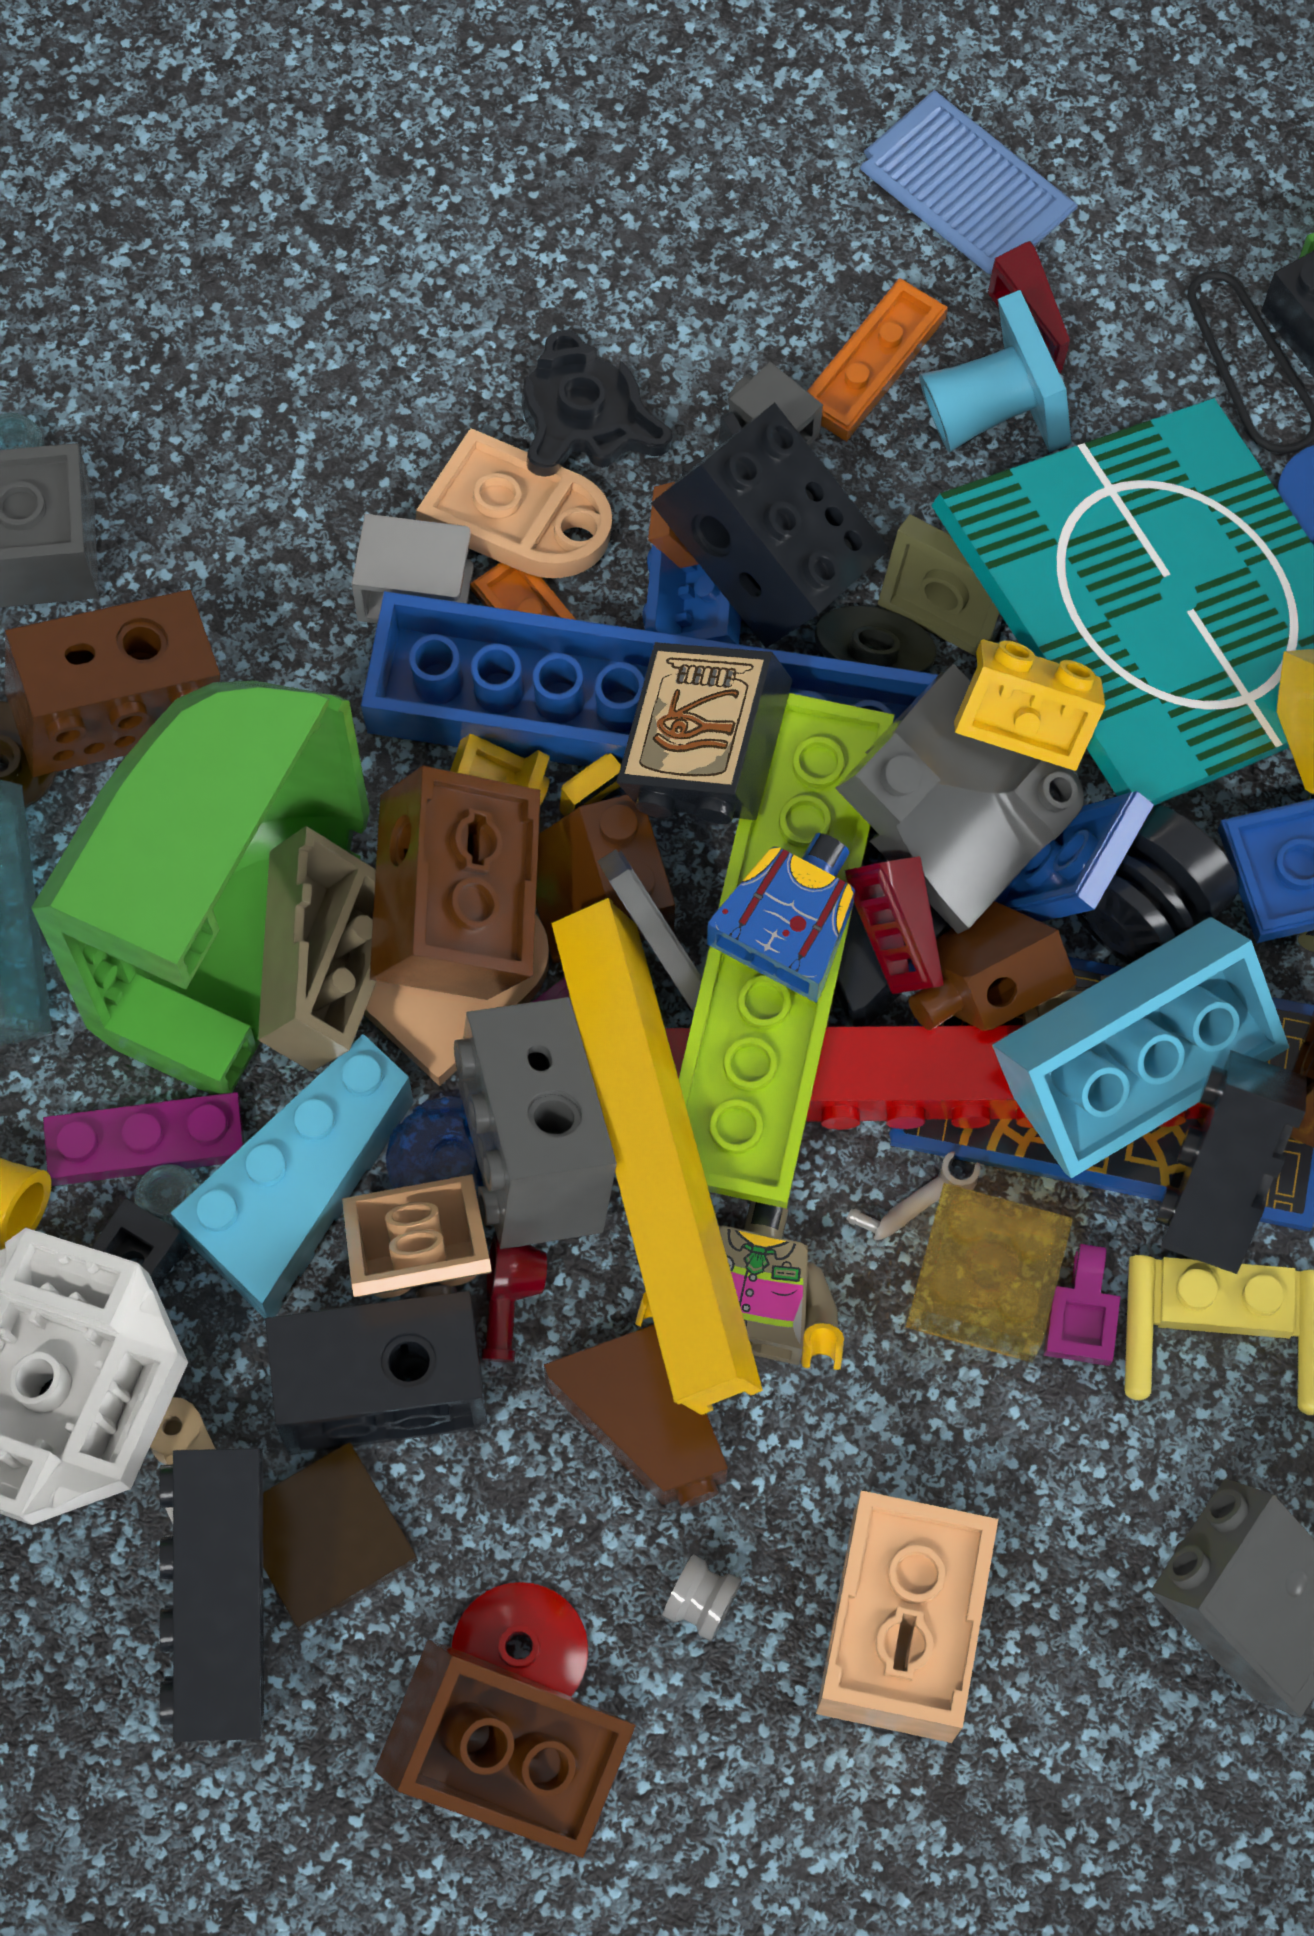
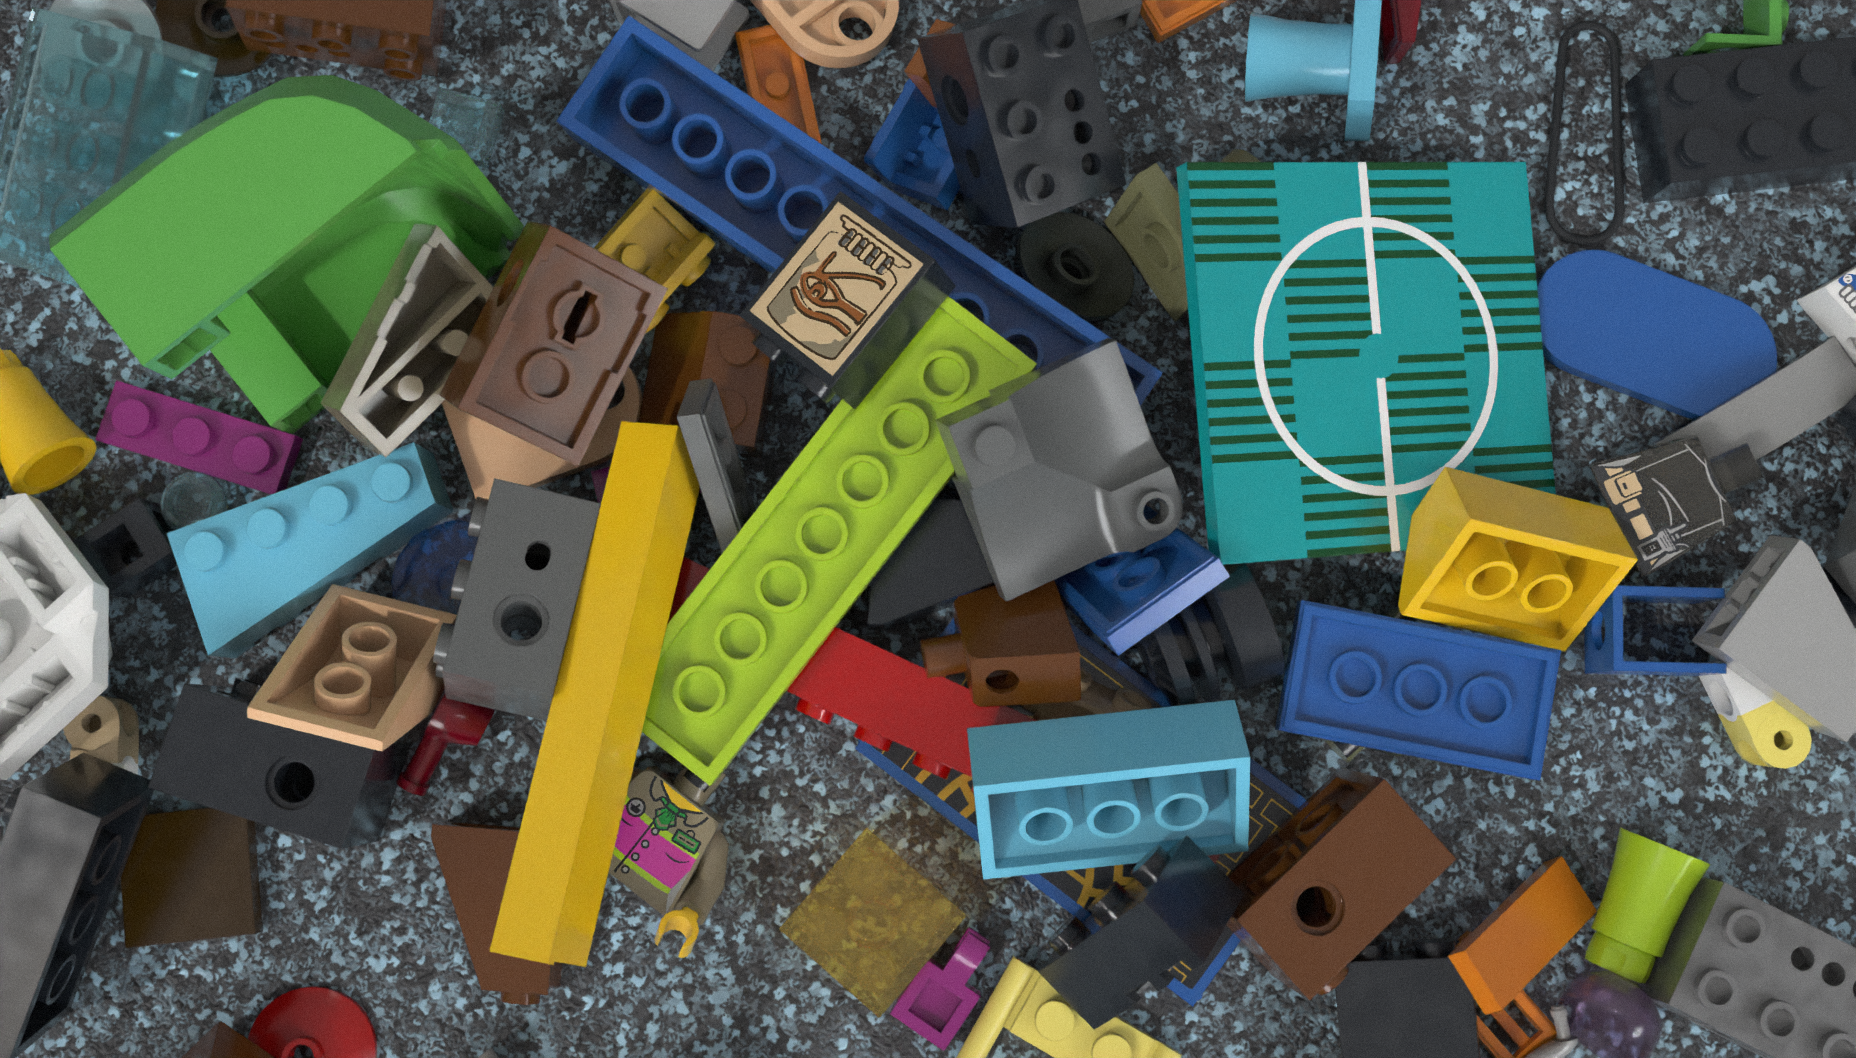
camera: 25 degrees right, 15 degrees up
(591, 785) = (737, 289): yellow tile -> none
(788, 916) = (834, 523): blue torso -> none
(896, 912) = (941, 565): dark red slope -> none
(914, 1203) = (843, 816): light grey piece -> none
(1031, 704) = (1165, 419): yellow bracket -> none

